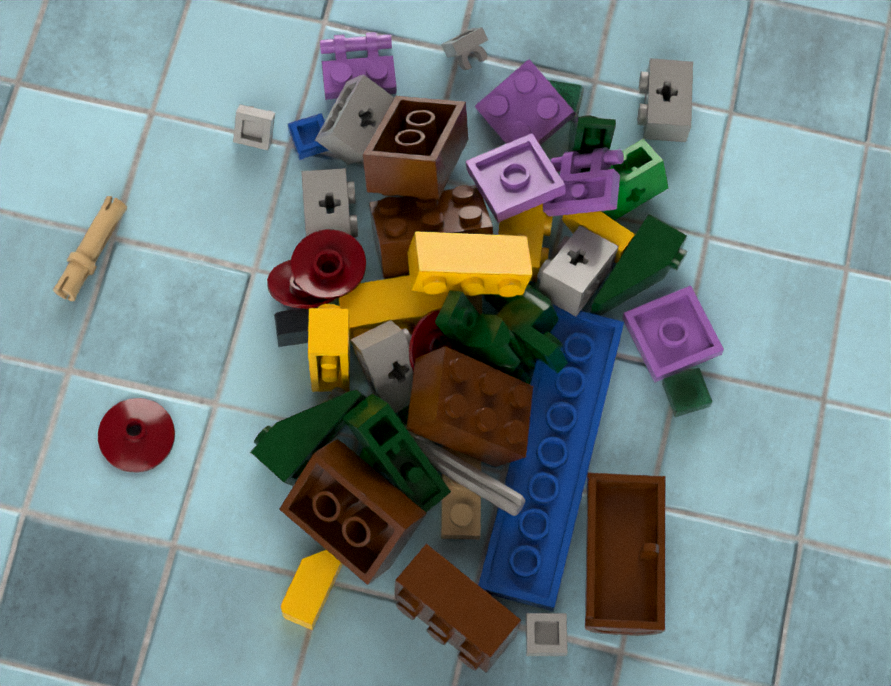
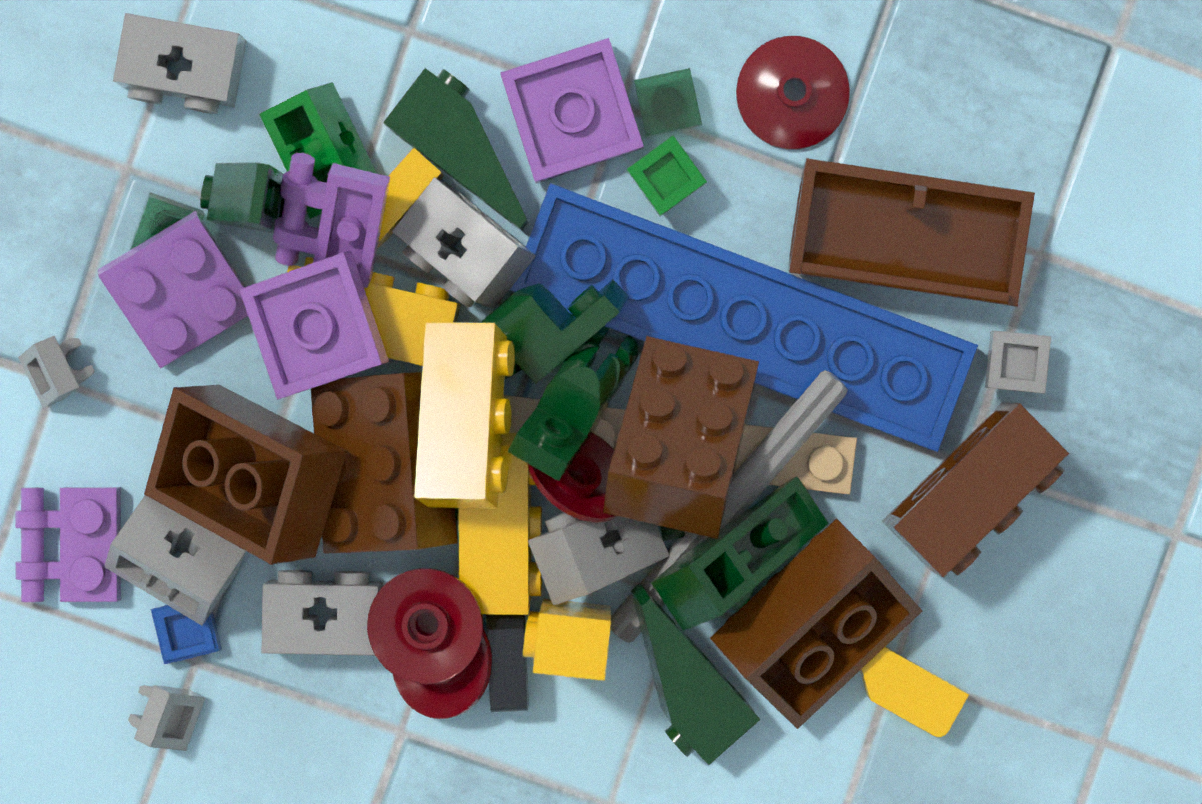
camera: 85 degrees left, 20 degrees up
(639, 392) = (666, 176): none -> green tile
(702, 492) = (782, 120): none -> dark red dish

